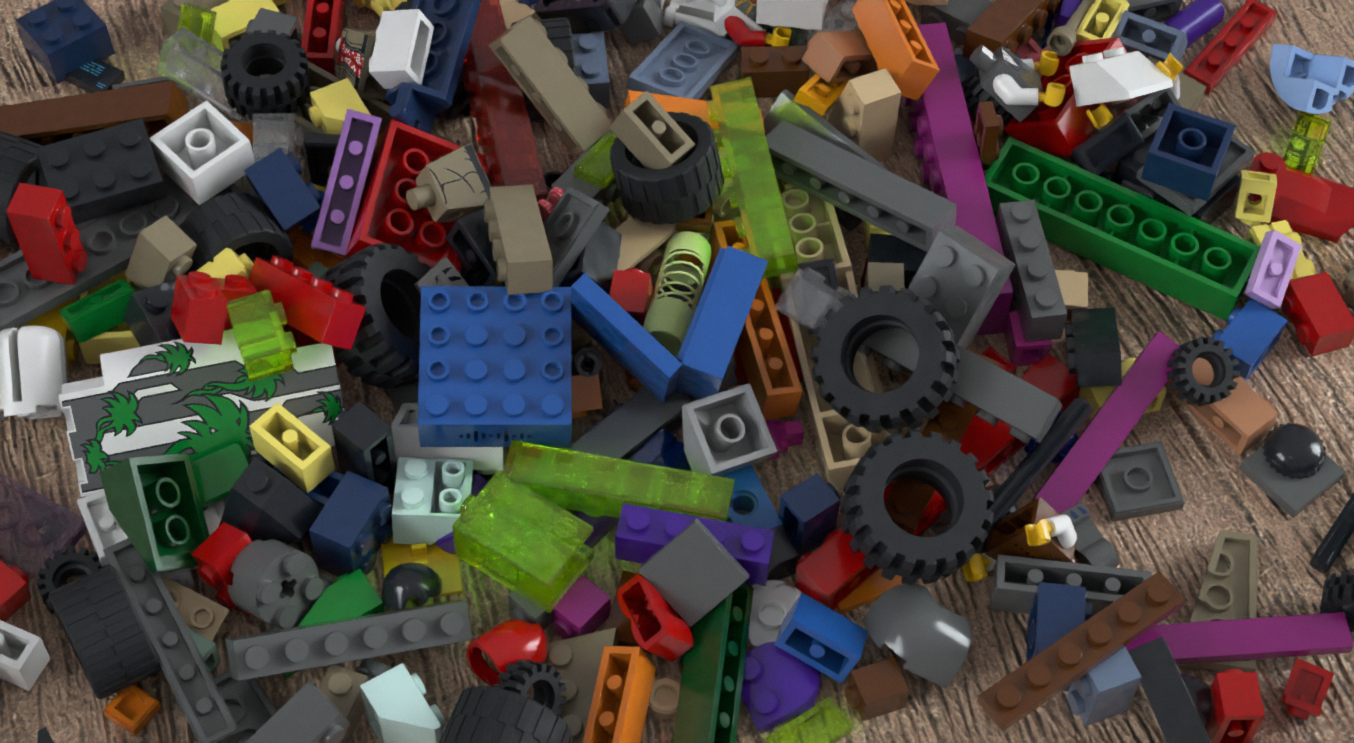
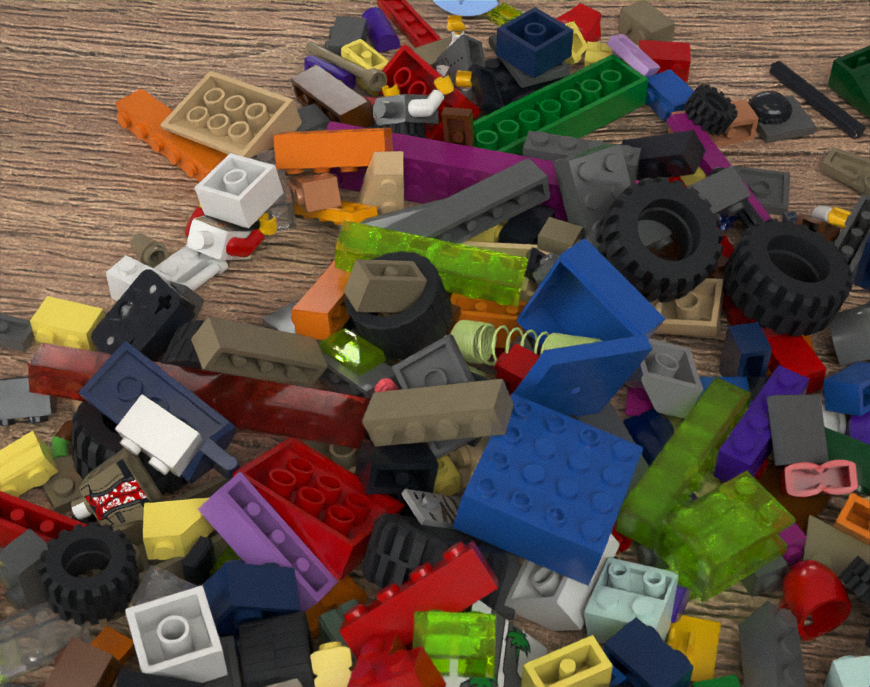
camera: 65 degrees left, 10 degrees down
(365, 445) = (579, 614): black brick -> none
(410, 581) = (723, 649): black hair -> none
(451, 186) = (325, 459): dark tan torso -> none
(684, 63) = (253, 291): sand blue plate -> none
(774, 69) = (289, 245): reddish brown brick -> none
(1115, 77) = (450, 50): white slope -> none
(1150, 37) = (392, 41): sand blue brick -> none

